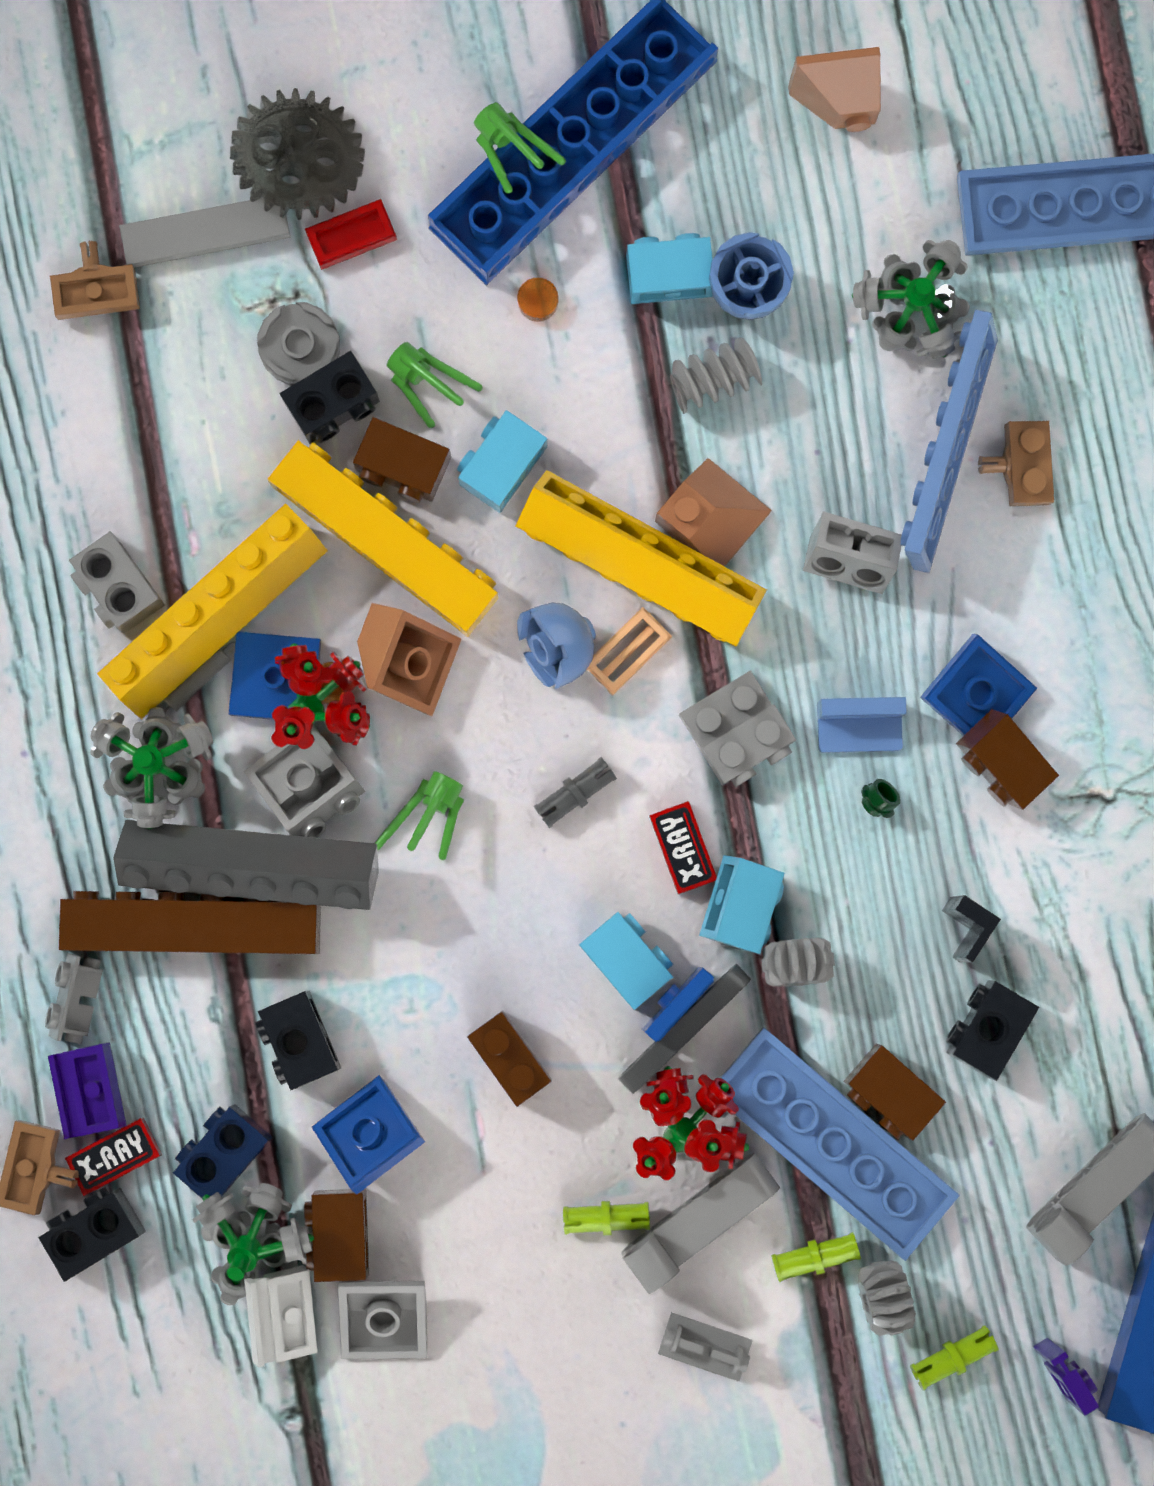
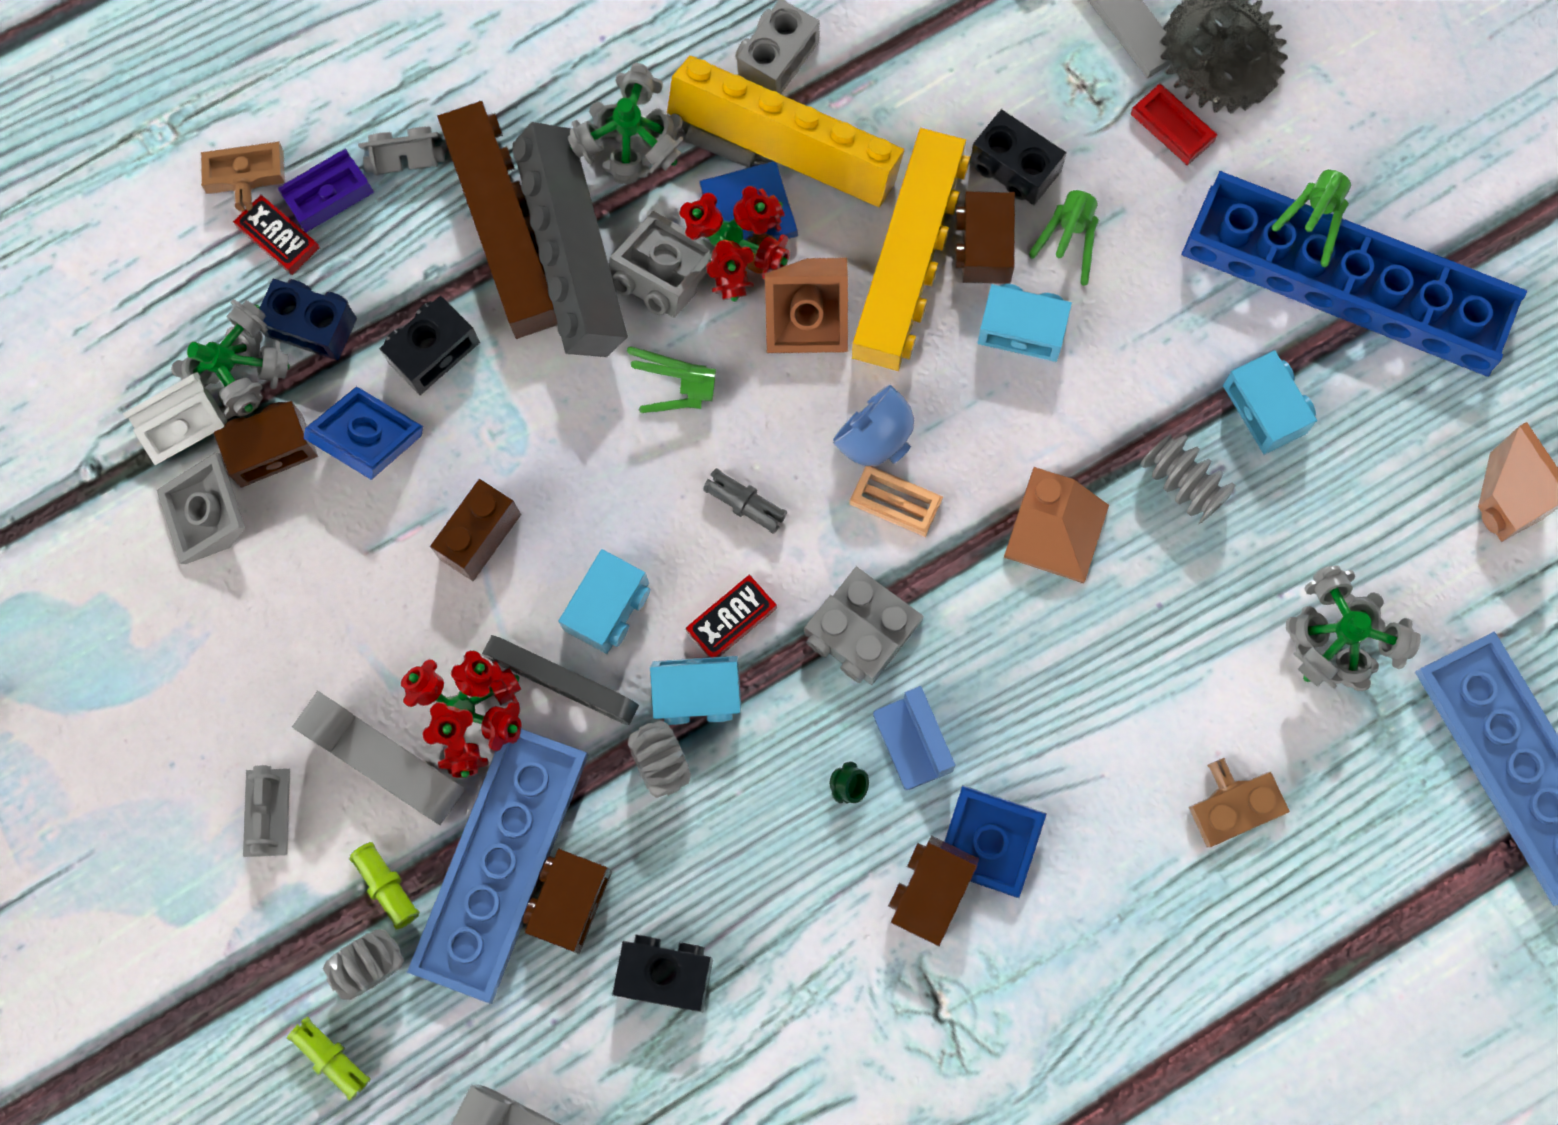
camera: 80 degrees right, 10 degrees down
(95, 1239) = (198, 241): black brick -> none
(297, 341) = (1058, 114): light grey tile -> none
(537, 299) = (1188, 301): clear orange tile -> none
(606, 1218) = (358, 675): lime pin -> none
(640, 558) = (986, 474): yellow brick -> none
(676, 1003) = (578, 657): blue plate -> none
(750, 276) = (1297, 469): medium blue cylinder -> none
(853, 552) = (1075, 665): light grey brick -> none
(947, 453) = (1224, 716): medium blue plate -> none
(977, 919) = (764, 913): black panel -> none

